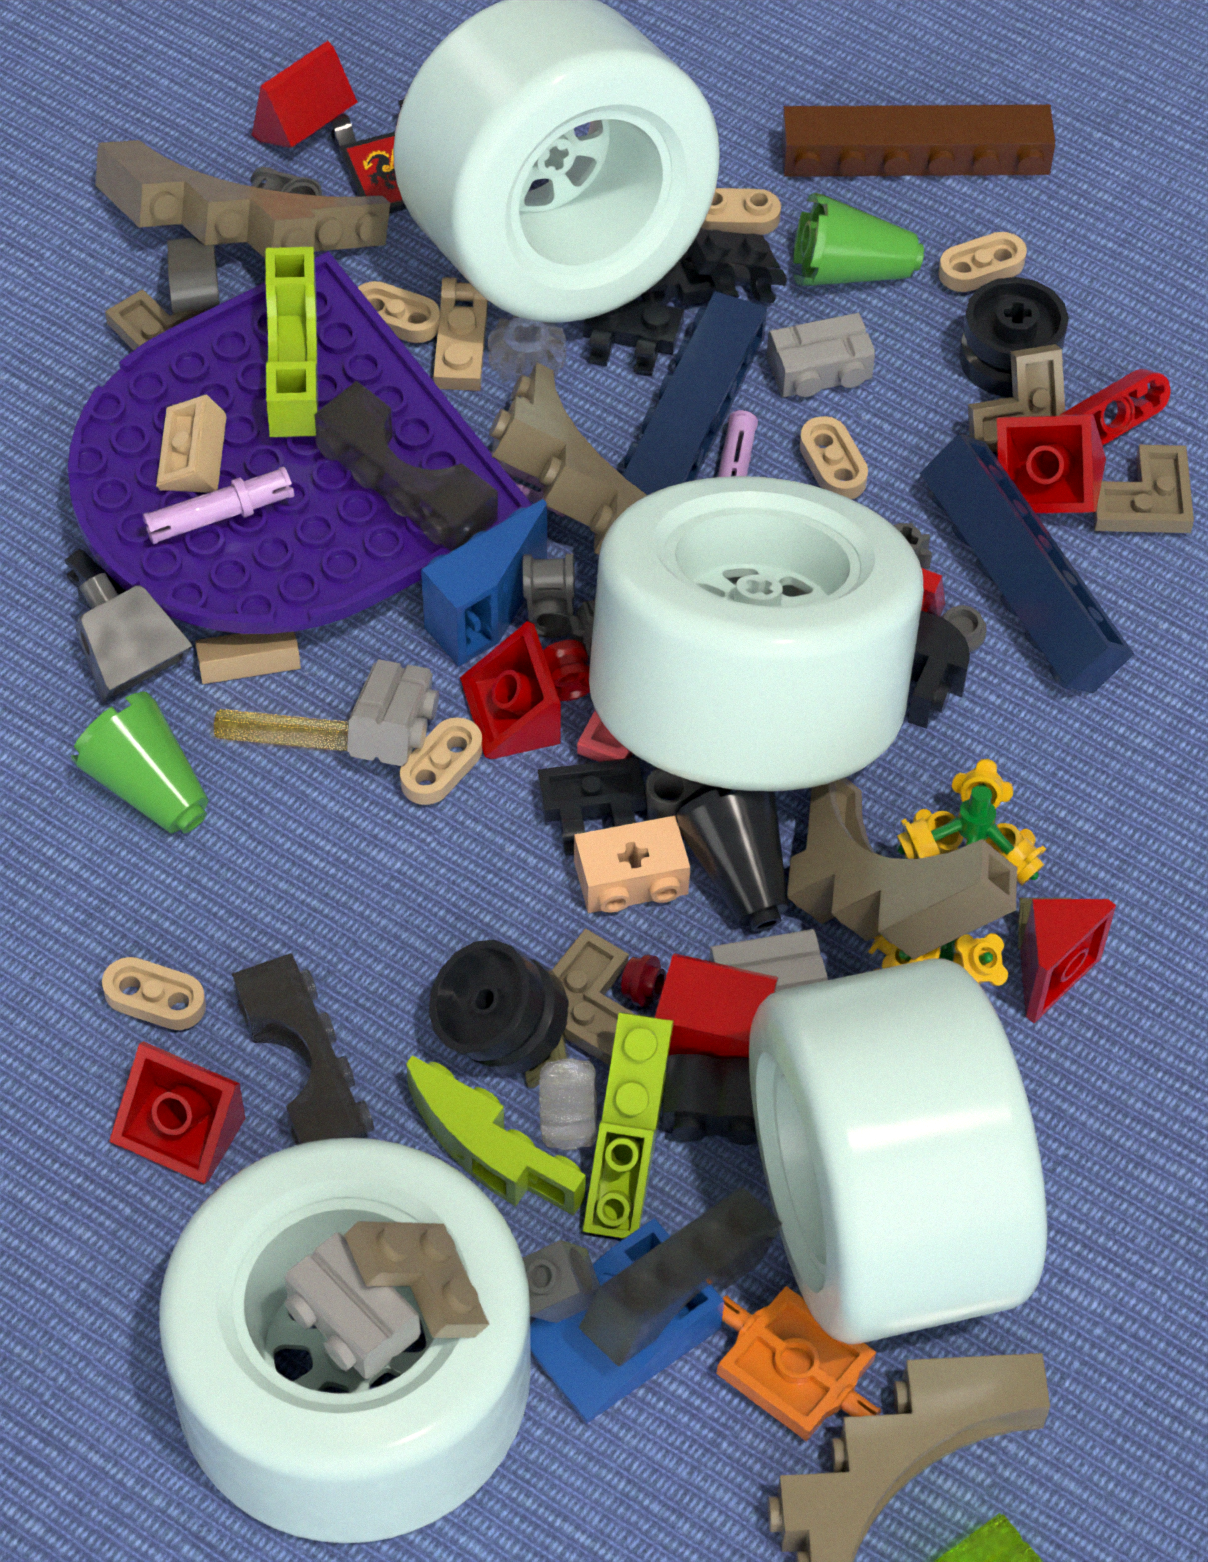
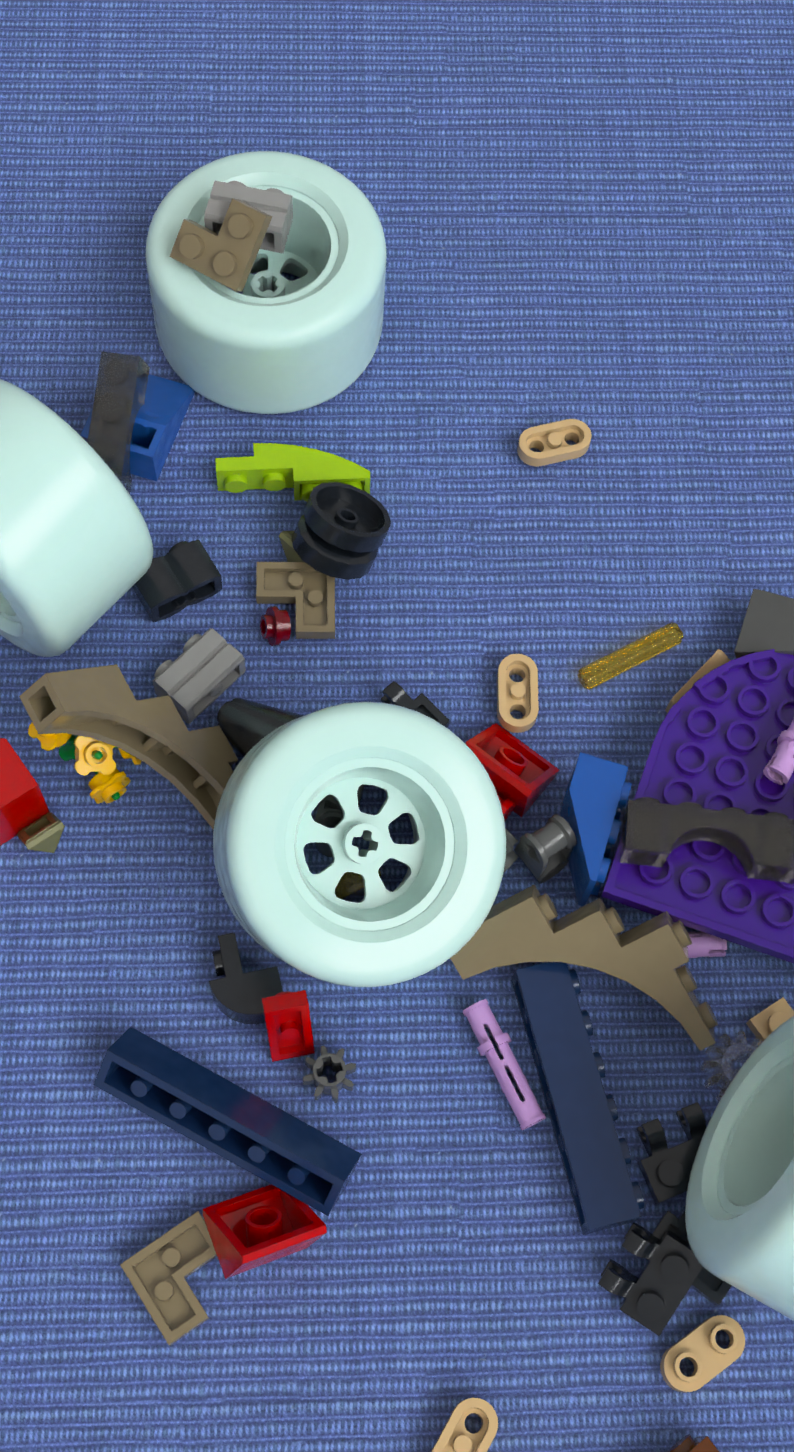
camera: 140 degrees right, 10 degrees up
(143, 764) = (685, 558): bright green cone -> none
(178, 1113) = (478, 389): red slope -> none
(281, 1011) = (472, 474): clear smoke arch -> none
(392, 713) = (571, 691): light grey brick -> none
(560, 1281) = (180, 388): dark grey brick -> none
(568, 1104) = (259, 511): clear gear -> none
(628, 1125) = (212, 519): lime slope -> none
(631, 865) = (345, 674): light nougat brick -> none
(711, 1006) = (207, 606): red slope -> none
(820, 355) = (519, 1228): light grey brick -> none
(836, 462) = (442, 1131): tan plate -> none
(851, 246) = (572, 1364): bright green cone -> none
(969, 624) = (243, 1041): dark grey plate -> none
(981, 795) = (112, 822): yellow plant -> none
(1008, 318) = (406, 1351): black wheel -> none
(1036, 392) = (314, 1287): dark tan plate -> none
(1129, 411) = (251, 1341): red beam -> none

